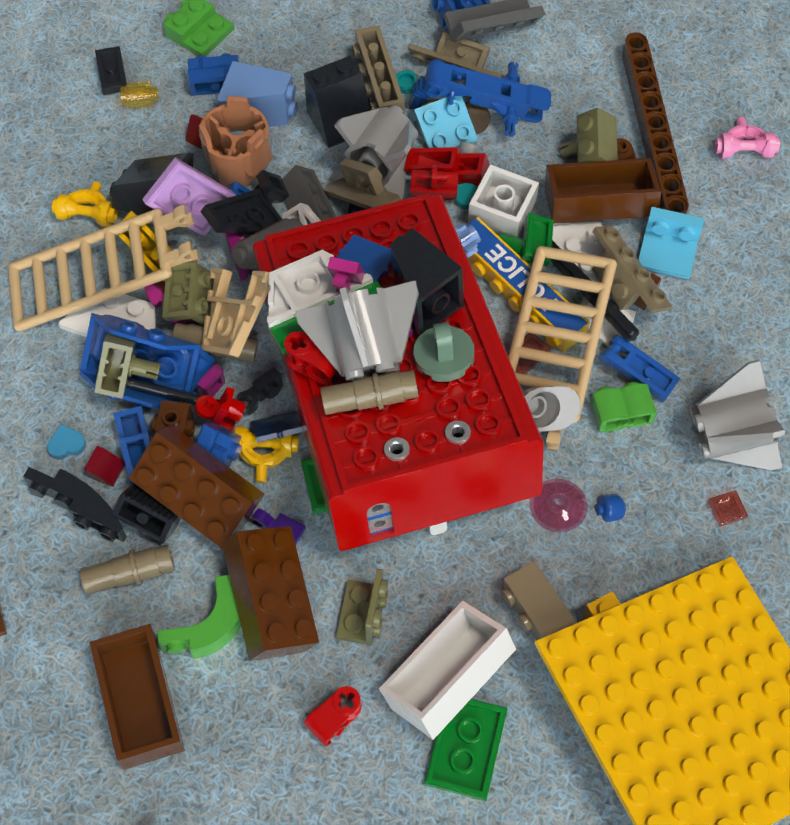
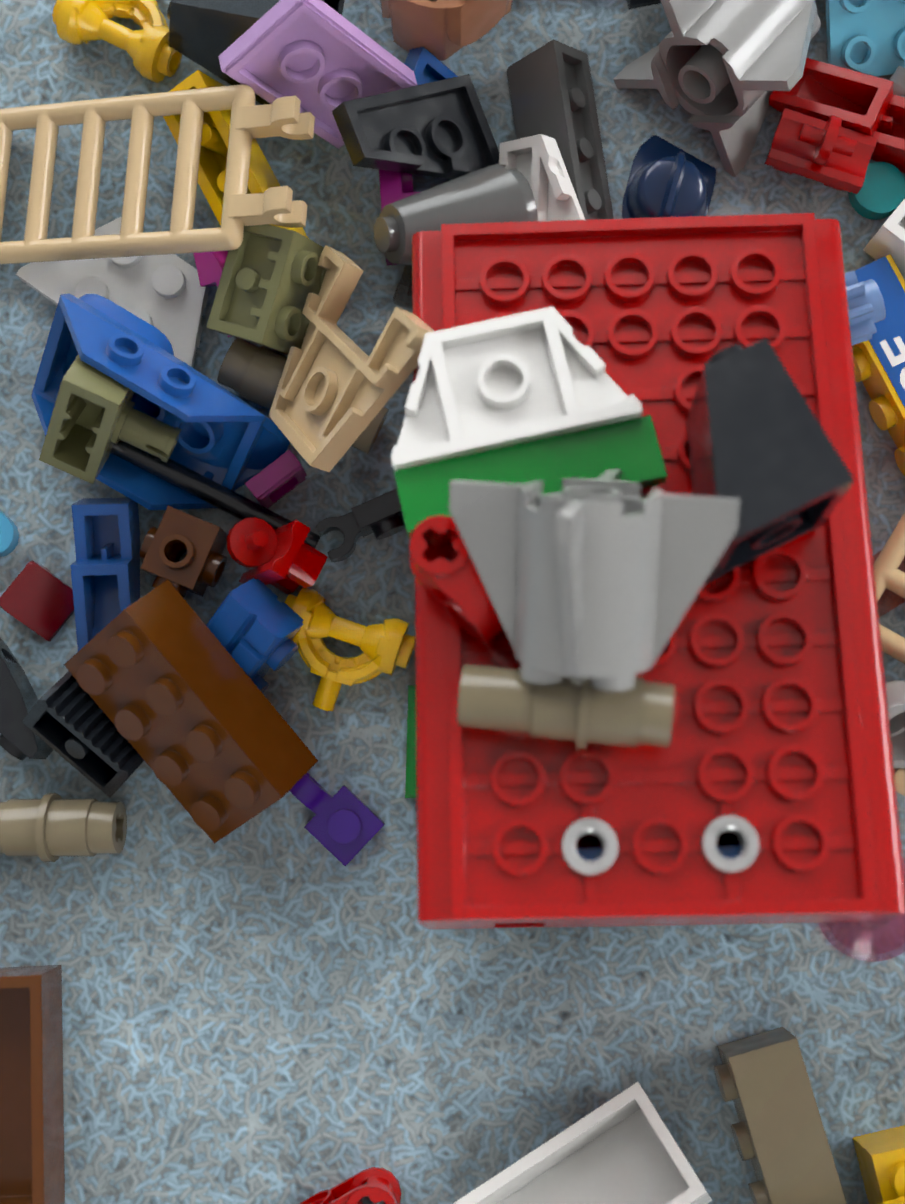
camera: 15 degrees right, 20 degrees up
(211, 633) = (207, 955): bright green arch -> none
(270, 592) = (280, 969): reddish brown piece -> none
(272, 186) = (494, 73): black tile -> none
(277, 426) = (372, 612): dark blue piece -> none
(345, 272) = (584, 395): dark pink tile -> none
(360, 186) = (675, 135): dark tan bracket -> none
(361, 610) = (446, 1029): olive bracket -> none
(371, 256) = (641, 345): blue piece -> none
(444, 352) = (750, 640): sand green tile -> none

